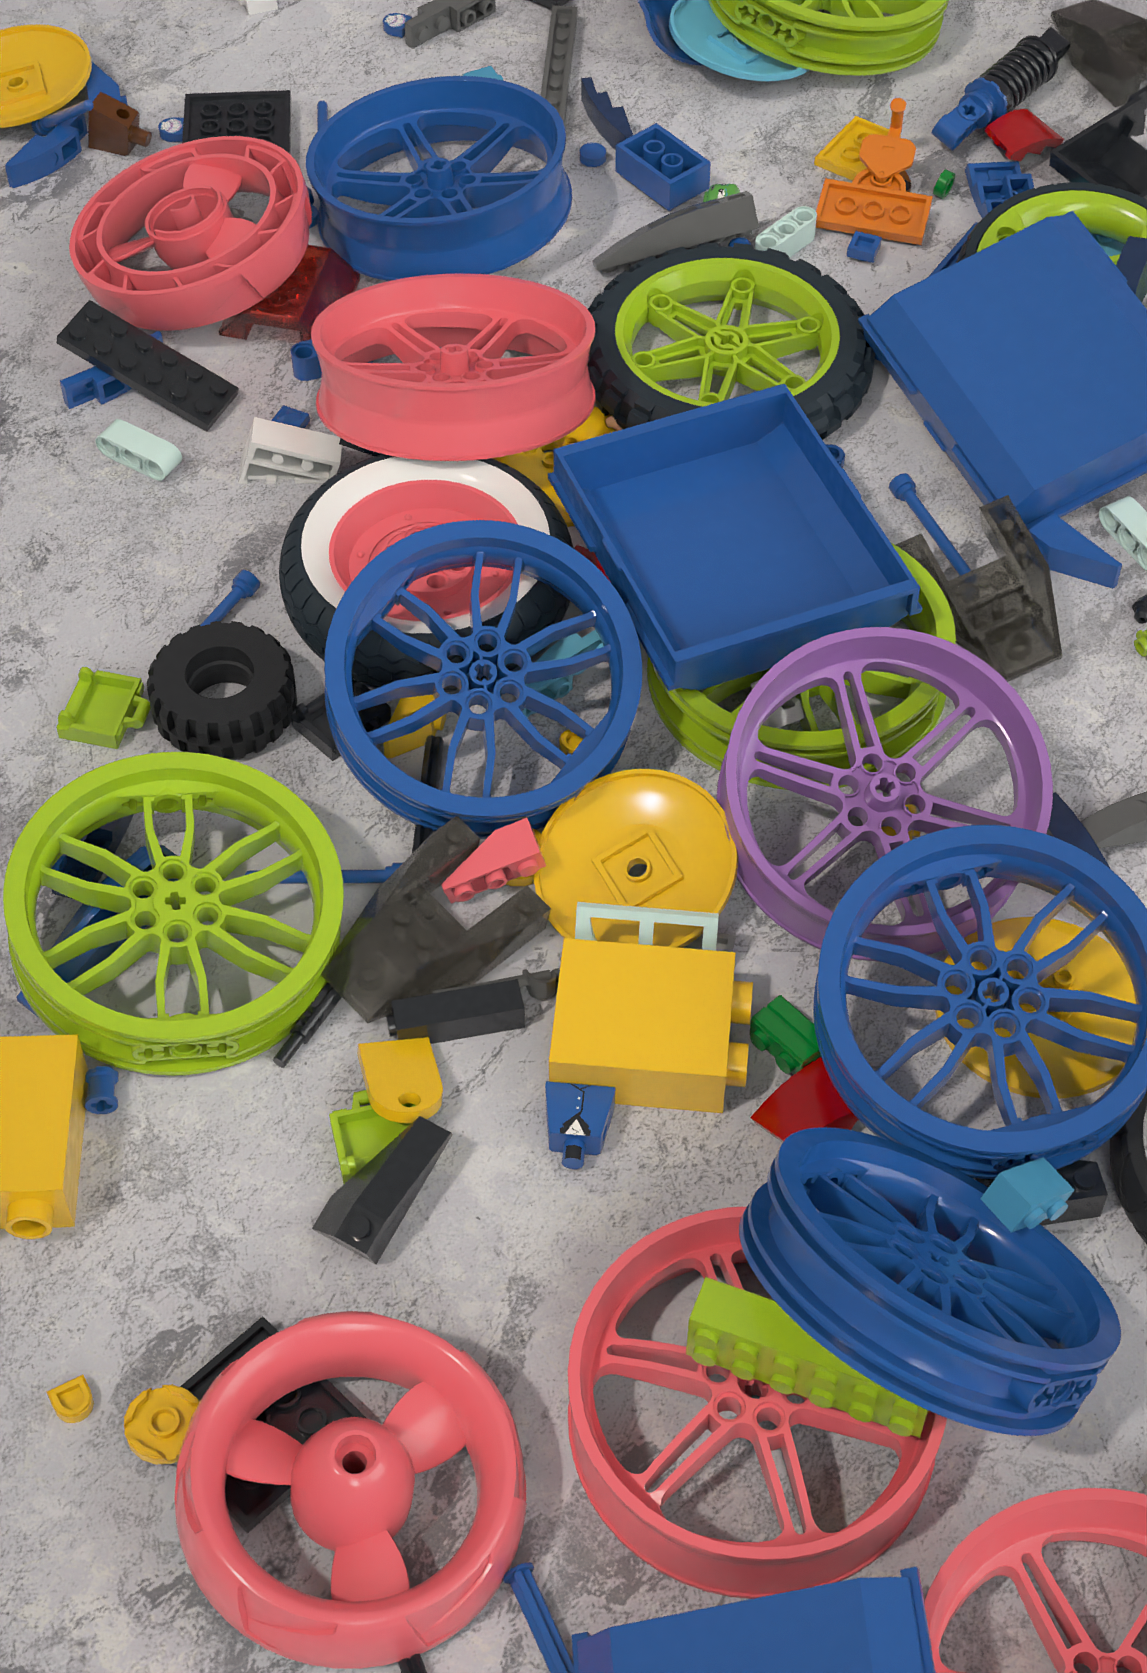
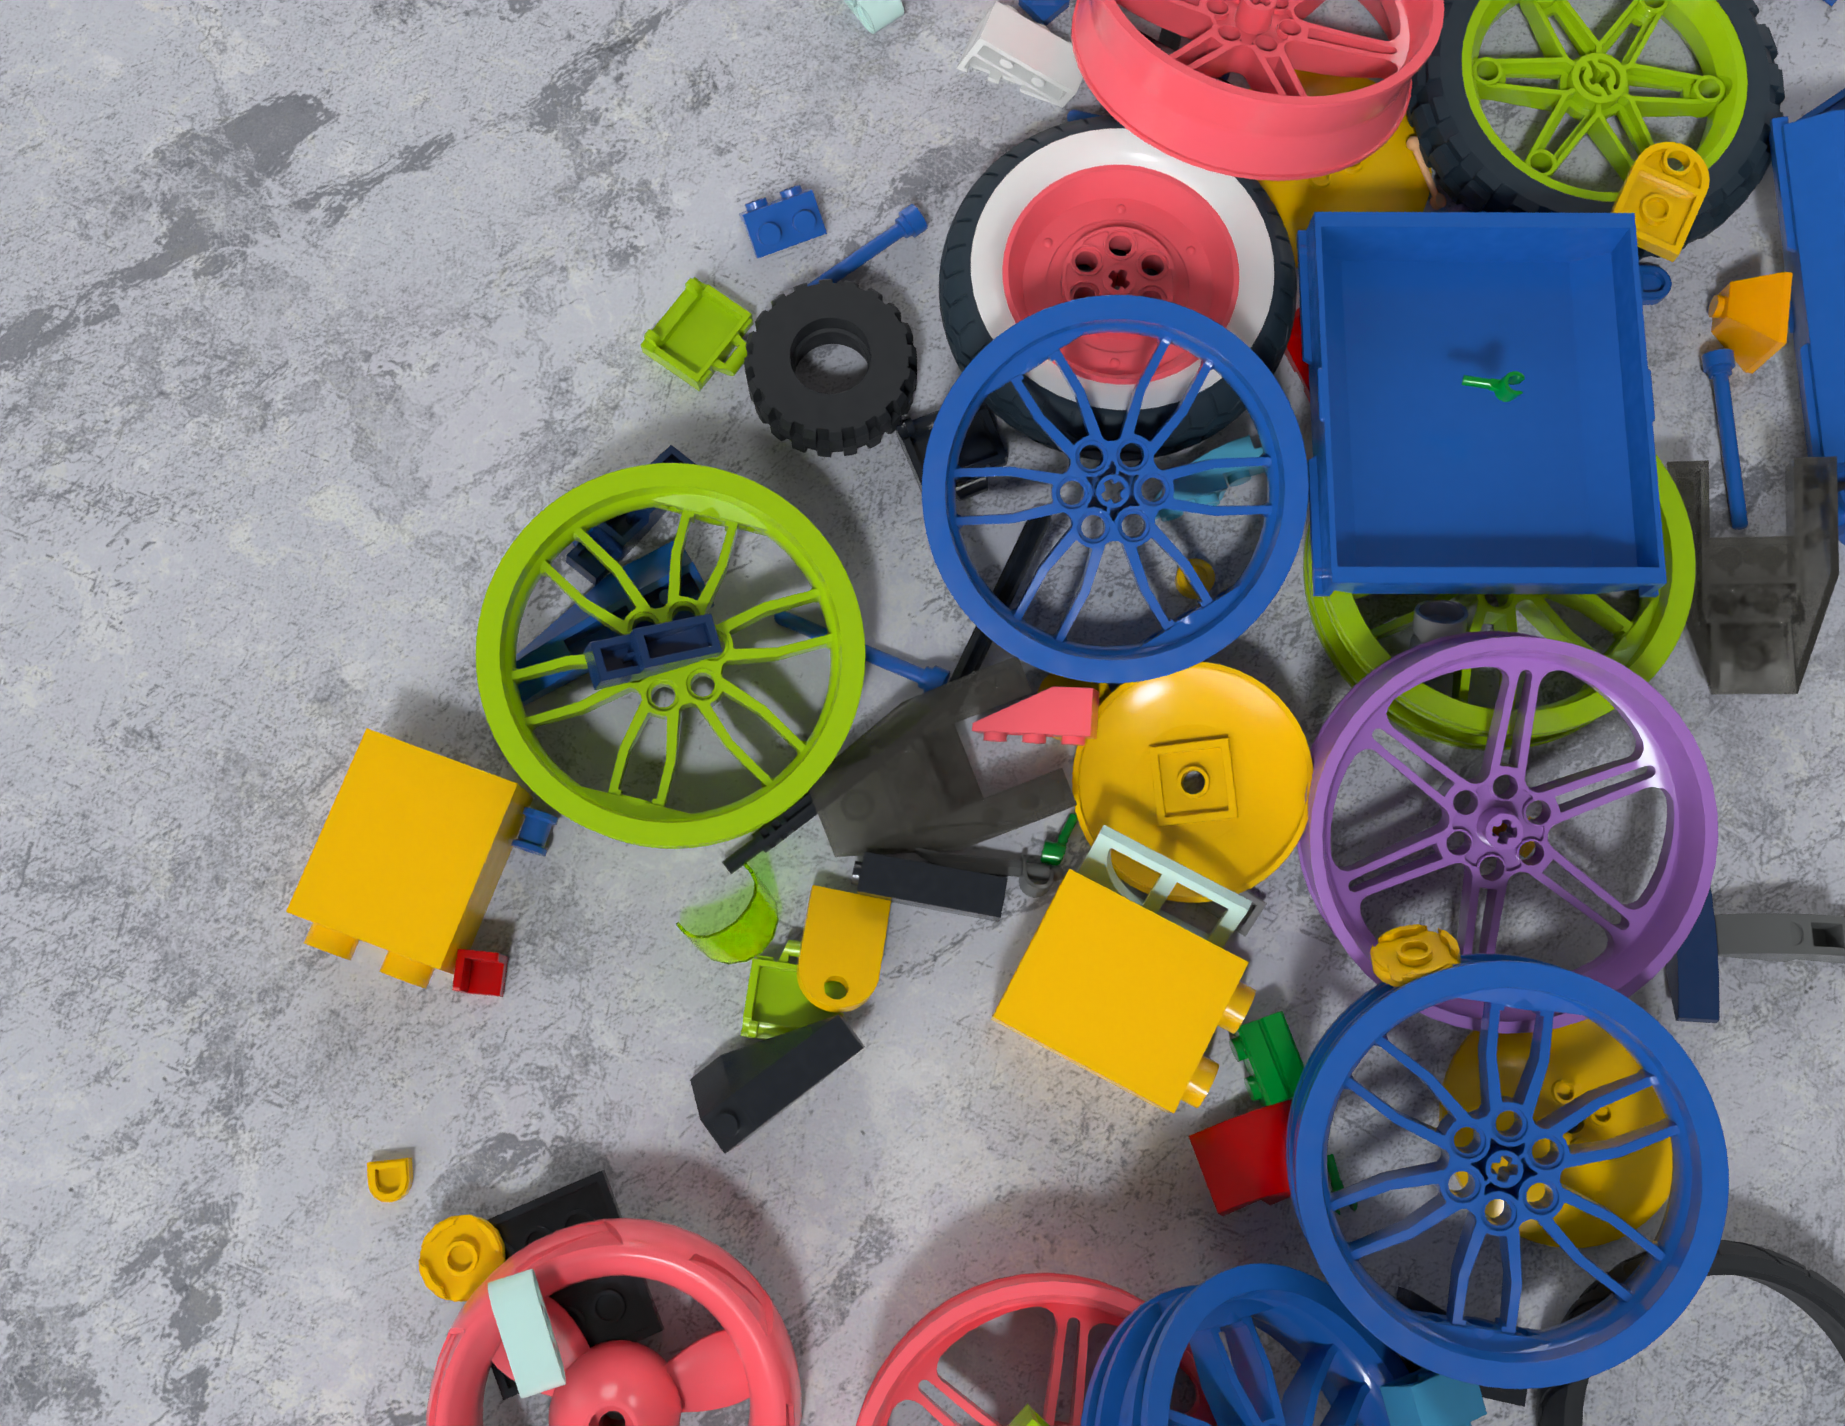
camera: 20 degrees right, 25 degrees up
(95, 1206) = (480, 973): none -> red panel
(141, 614) = (782, 221): none -> blue bracket
(156, 894) = (651, 651): none -> dark blue slope
(252, 1408) = (526, 1333): none -> light aqua beam
(308, 1102) = (747, 934): none -> clear neon green piece
(414, 740) = (1016, 493): yellow slope -> none
(548, 959) = (1054, 851): none -> green hand
(578, 1120) = (1005, 1070): blue torso -> none
(744, 507) = (1499, 386): none -> green hand
(811, 388) = (1664, 198): none -> yellow tile
(841, 880) = (1412, 953): none -> yellow tile
(911, 448) = (1753, 318): none -> light orange slope

